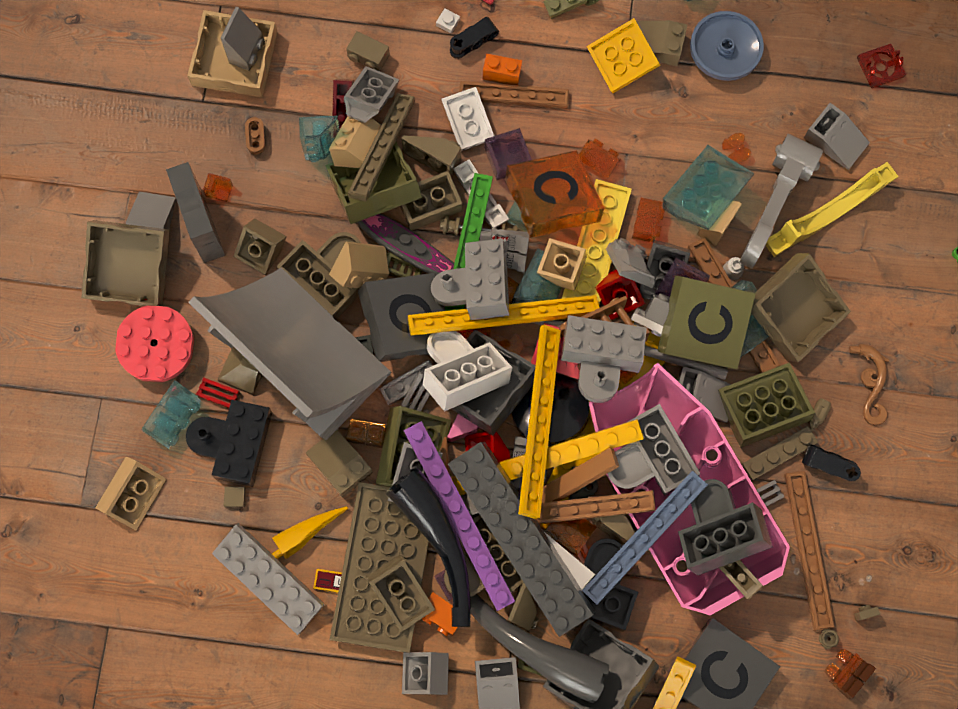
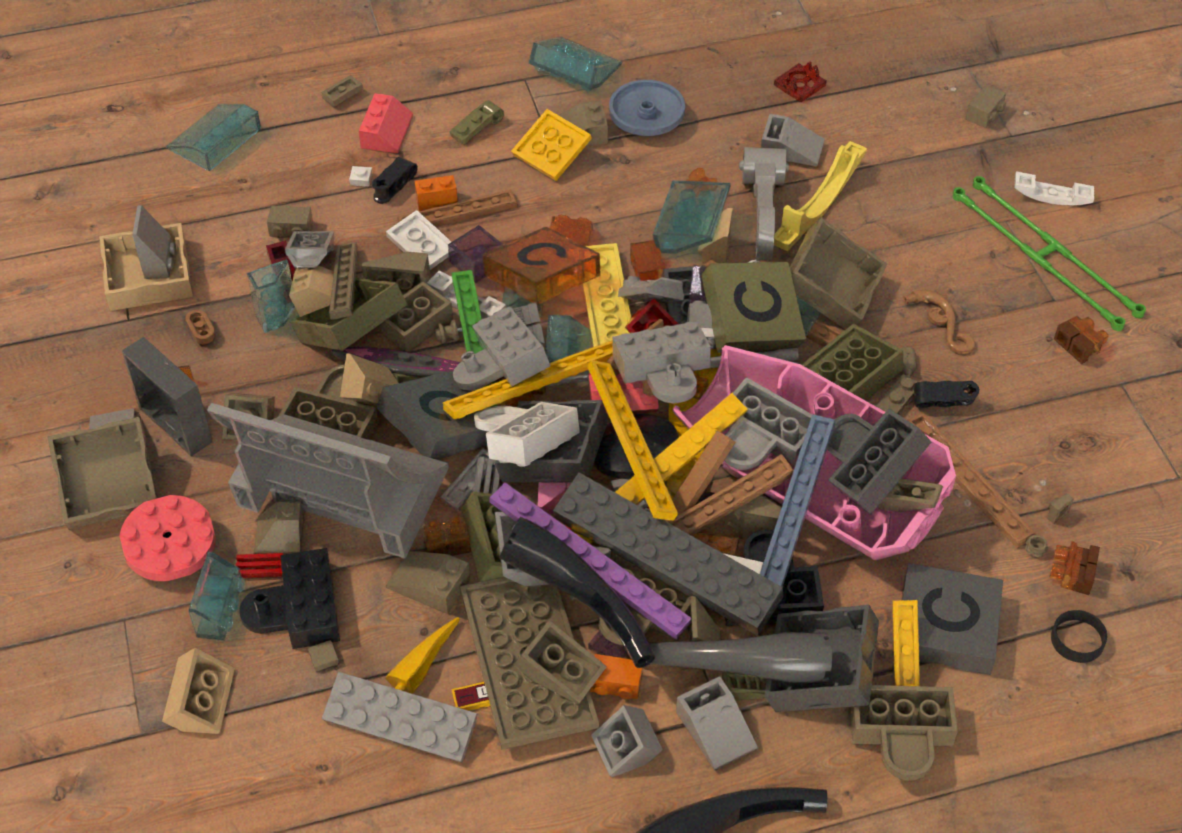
camera: 20 degrees left, 25 degrees down
(562, 264) = (581, 316): tan slope -> none

